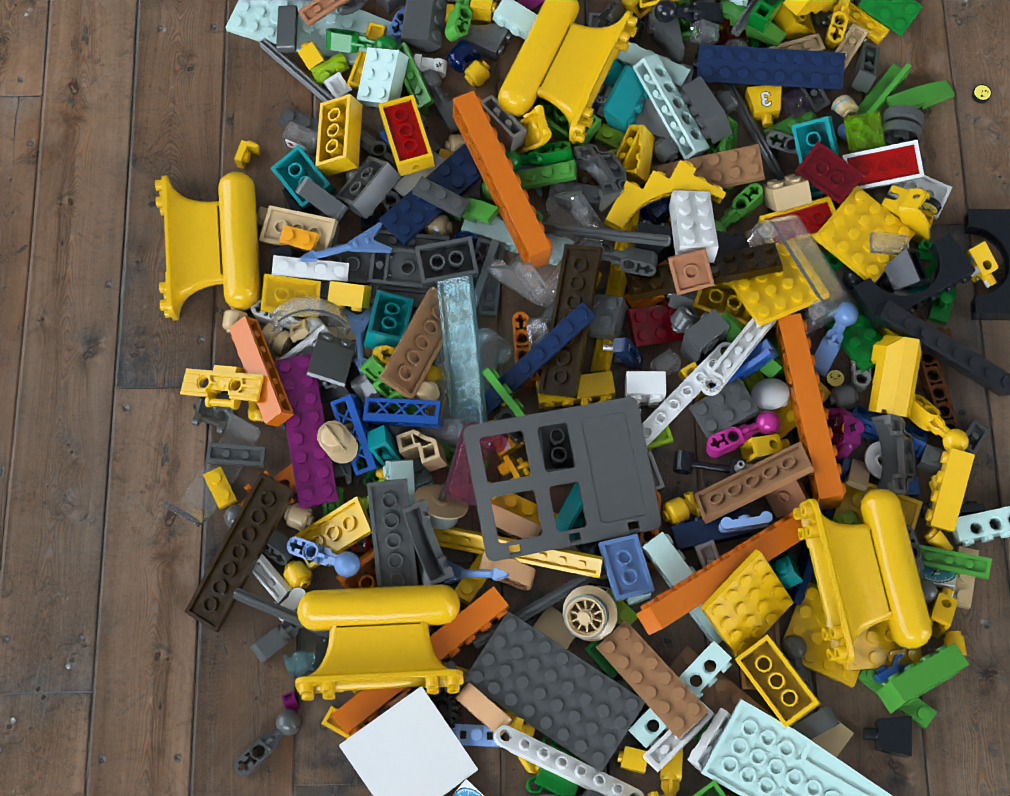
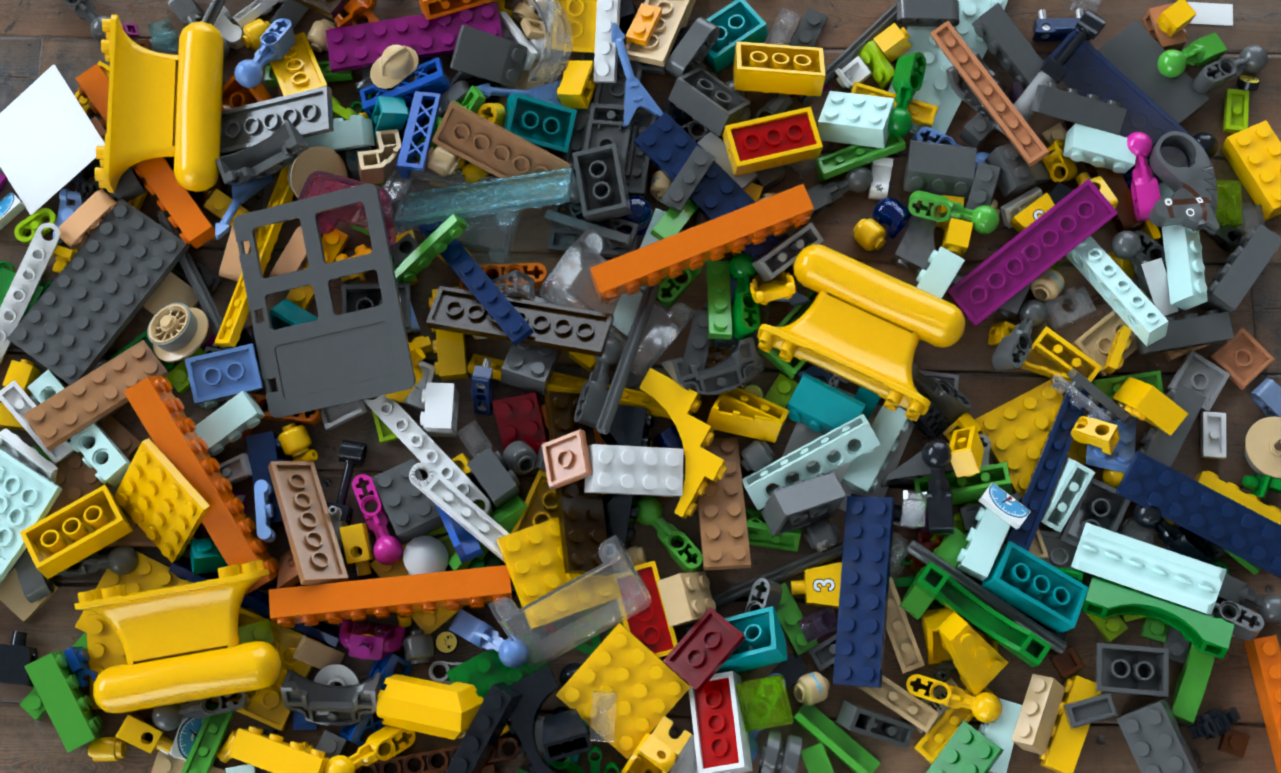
camera: 90 degrees right, 5 degrees up
(488, 764) = (32, 223): none -> lime plate

